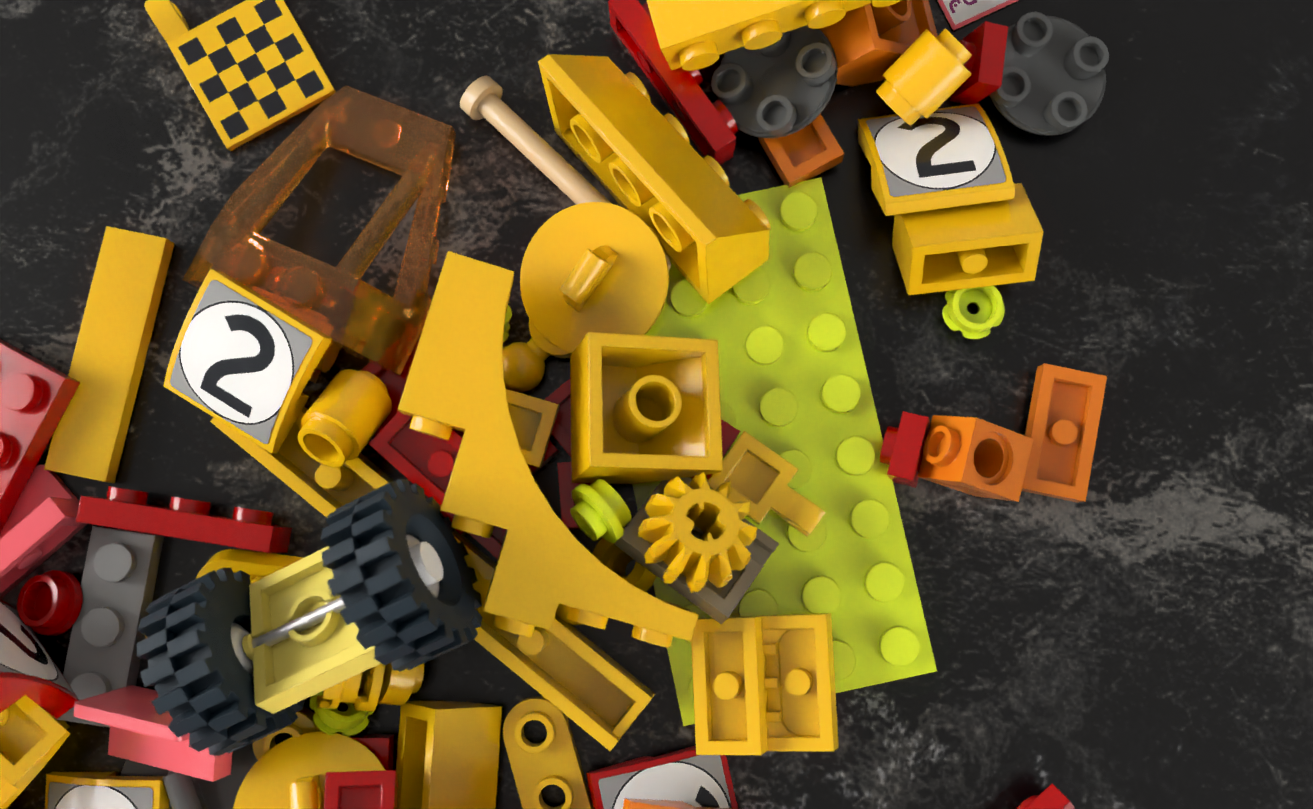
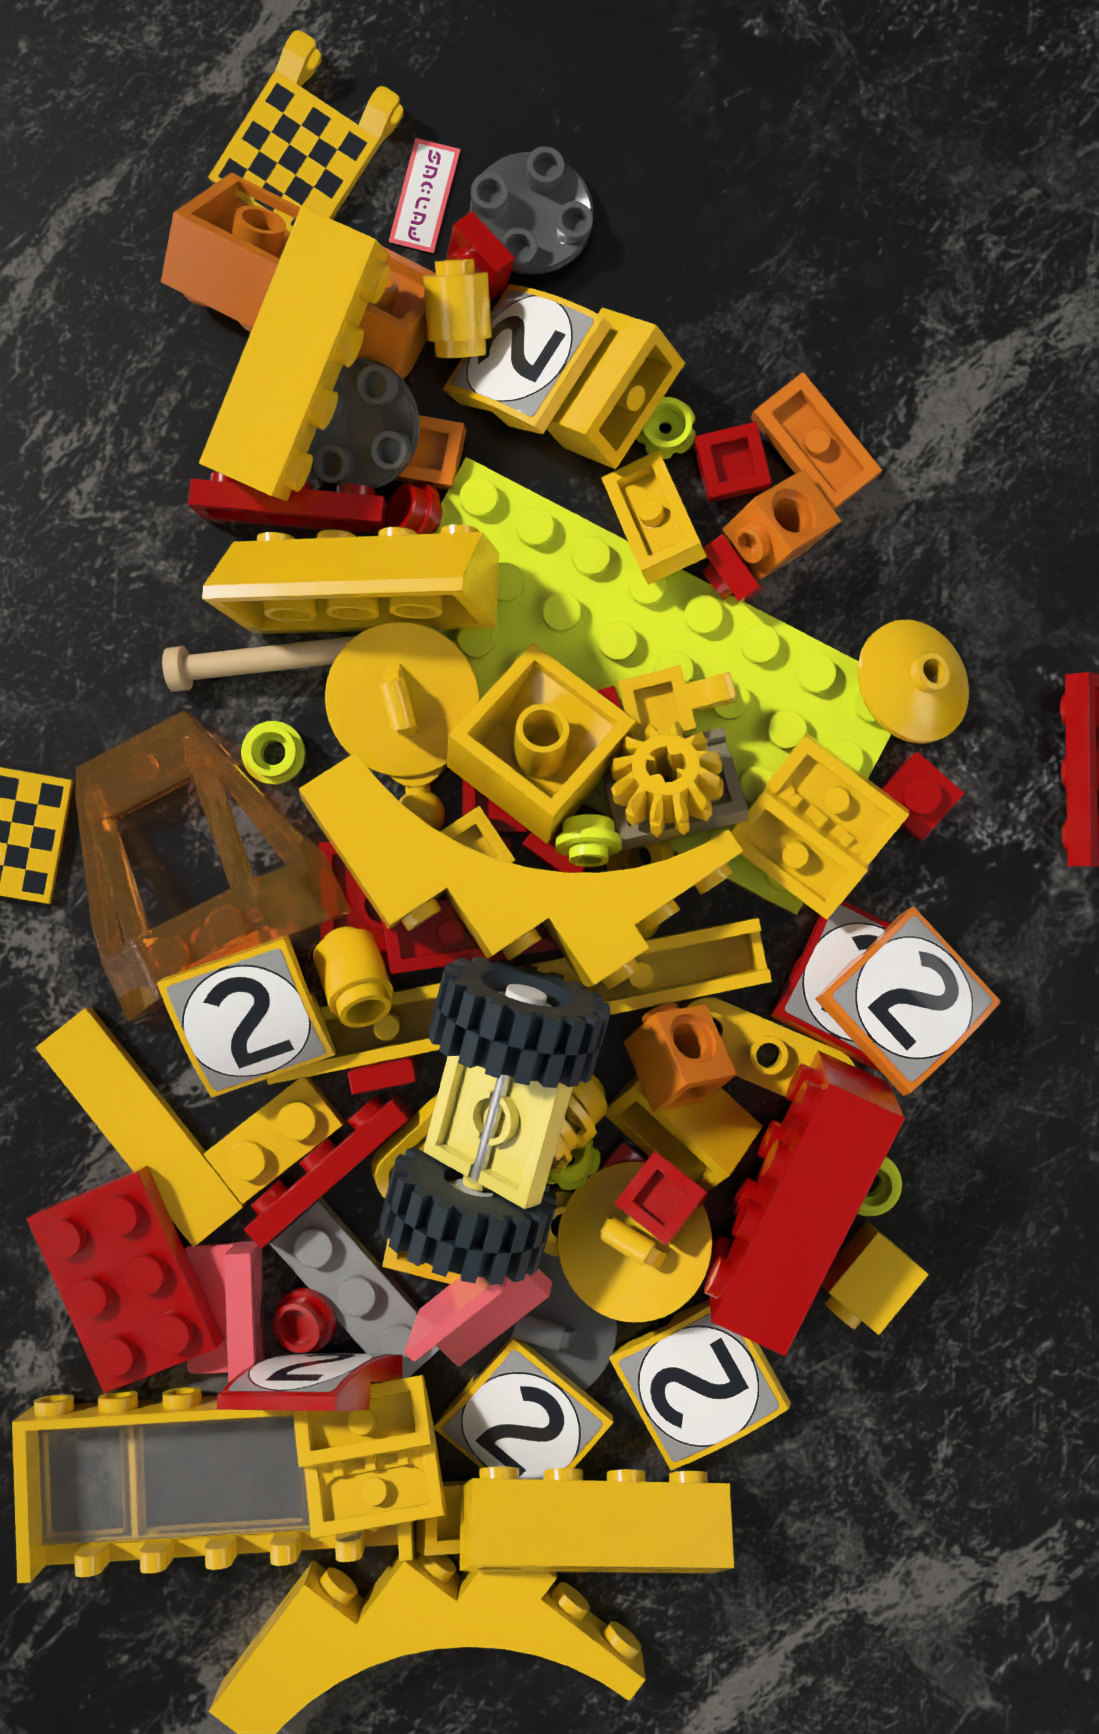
camera: 50 degrees left, 5 degrees up
(179, 462) = (274, 1138): none -> yellow plate
(291, 506) = (384, 1074): none -> red tile
(464, 206) = (254, 747): none -> neon yellow plate
(466, 733) = (679, 1056): none -> orange brick
(749, 172) = (415, 508): none -> red plate
(863, 747) = (924, 793): none -> red plate
(895, 355) = (653, 517): none -> yellow plate
(925, 660) = (913, 681): none -> yellow dish
(990, 380) = (732, 462): none -> red plate

